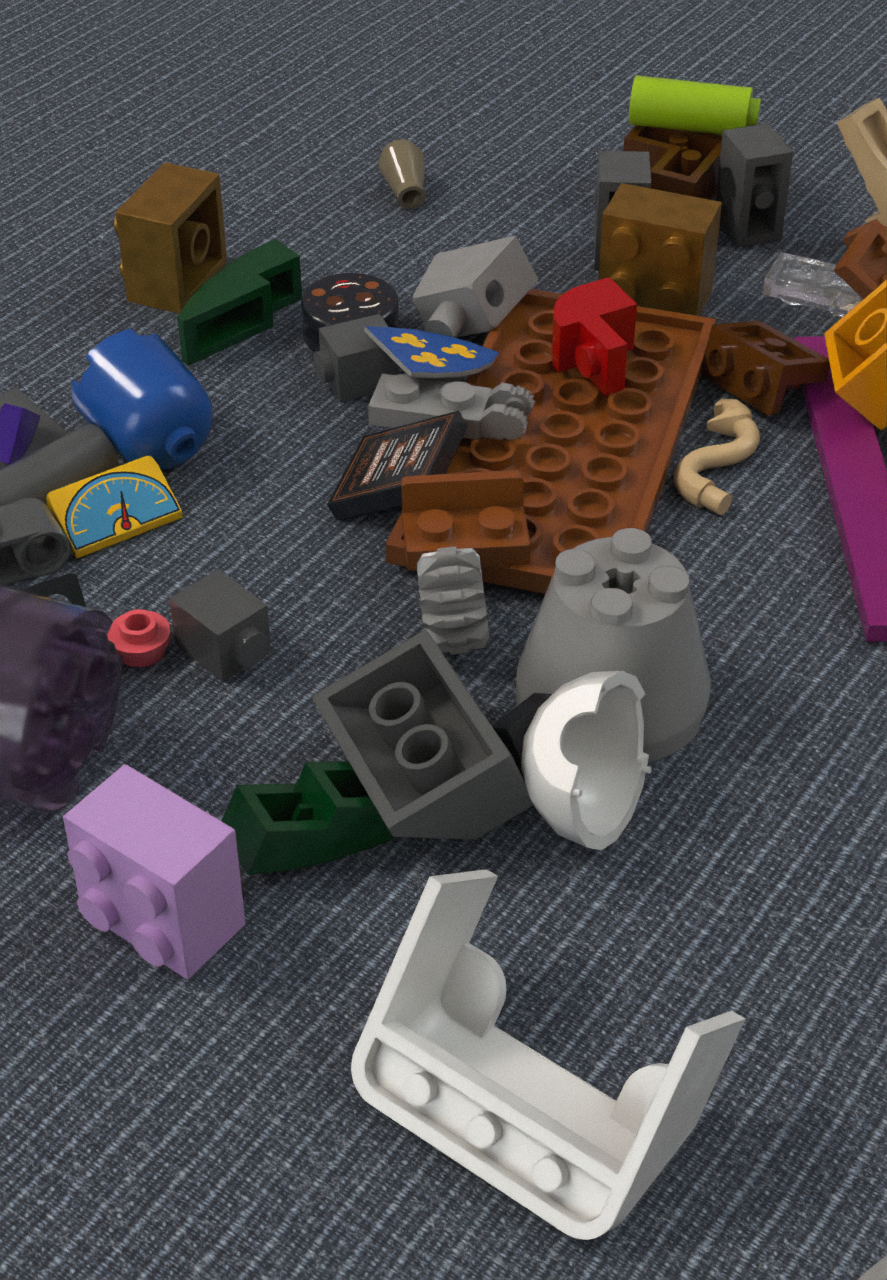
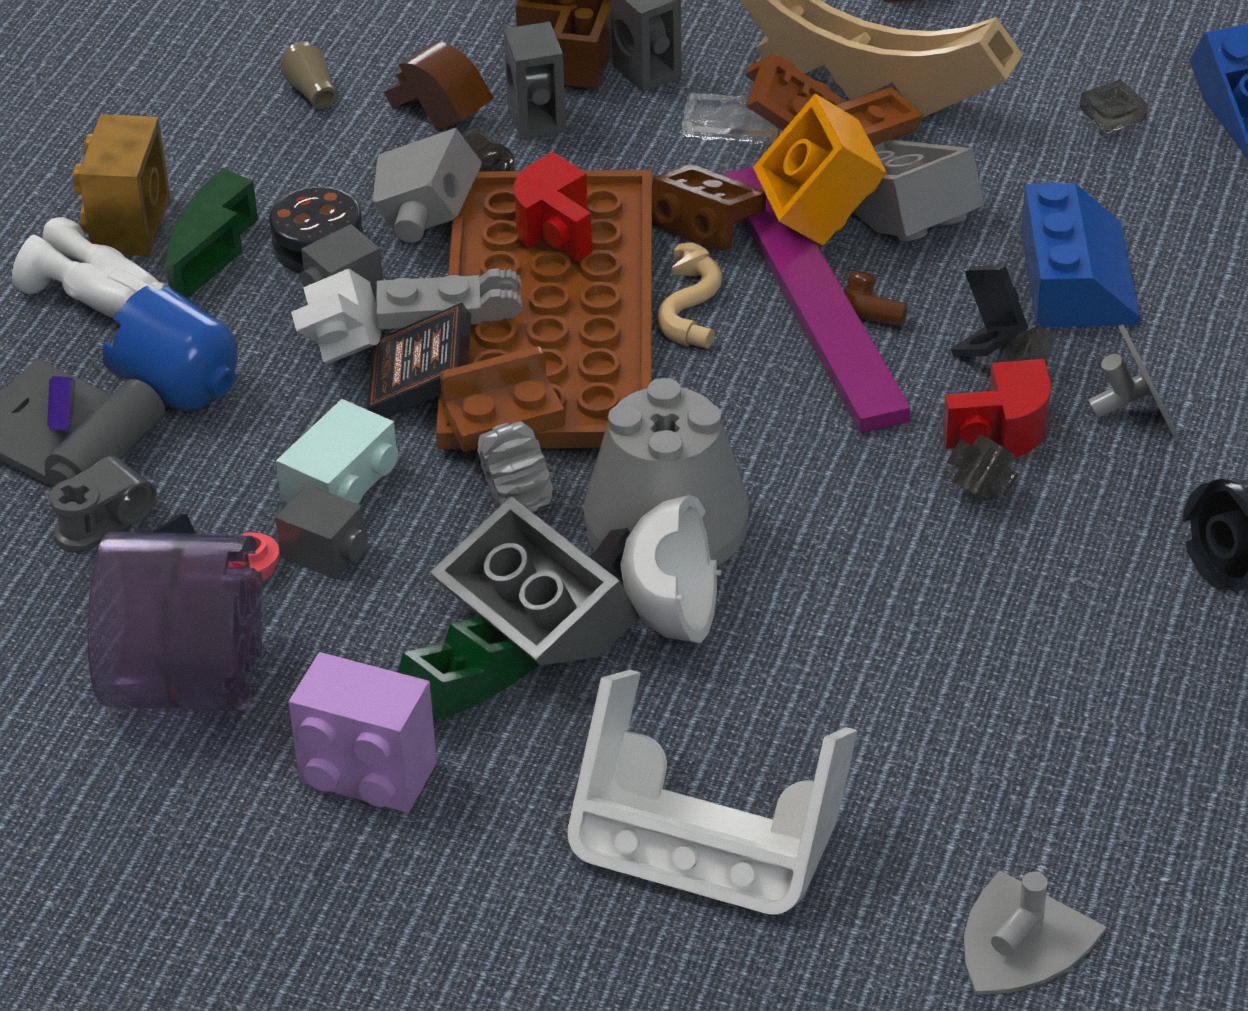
camera: 15 degrees left, 0 degrees up
(94, 302) = (100, 281): none -> white piece
(113, 506) = (179, 447): slope -> none
(275, 547) = (340, 454): none -> light aqua brick
(329, 401) = (339, 315): none -> white brick
(432, 354) = (414, 254): blue shield -> none
(528, 199) = (442, 82): none -> reddish brown brick
(552, 273) = (490, 152): none -> clear smoke cone
(660, 247) = (583, 112): pearl gold brick -> none

